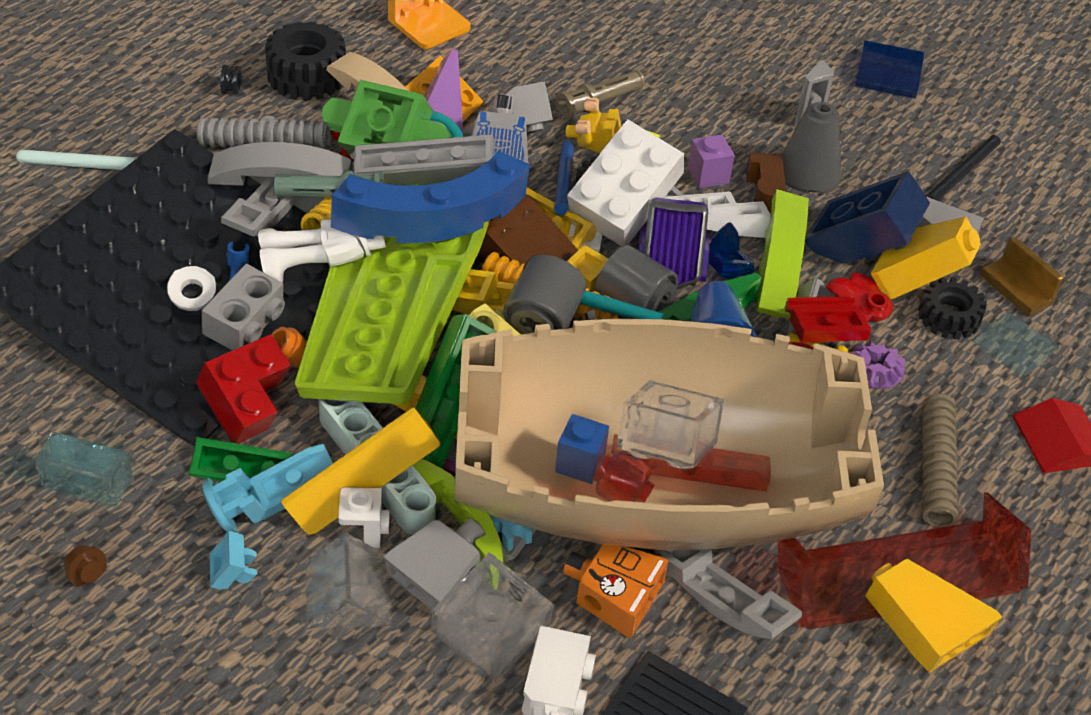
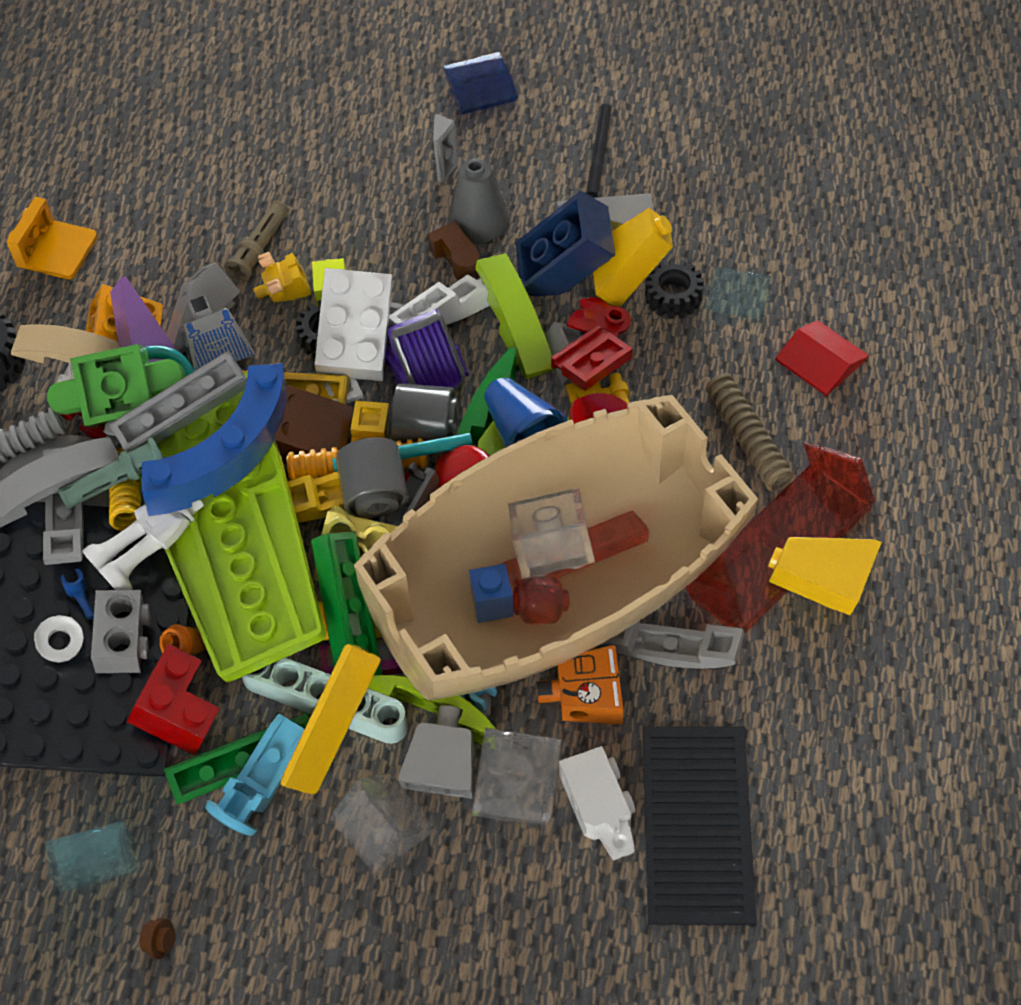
camera: 25 degrees left, 10 degrees up
(229, 562) = (273, 860): medium azure tile -> none
(364, 508) = (352, 750): white bracket -> none
(564, 177) = (289, 343): blue bar -> none
(710, 161) = (399, 257): medium lavender brick -> none
(726, 254) = (473, 343): clear blue plate -> none
(877, 375) = (658, 381): medium lavender gear -> none
(1023, 278) = (710, 230): pearl gold panel -> none

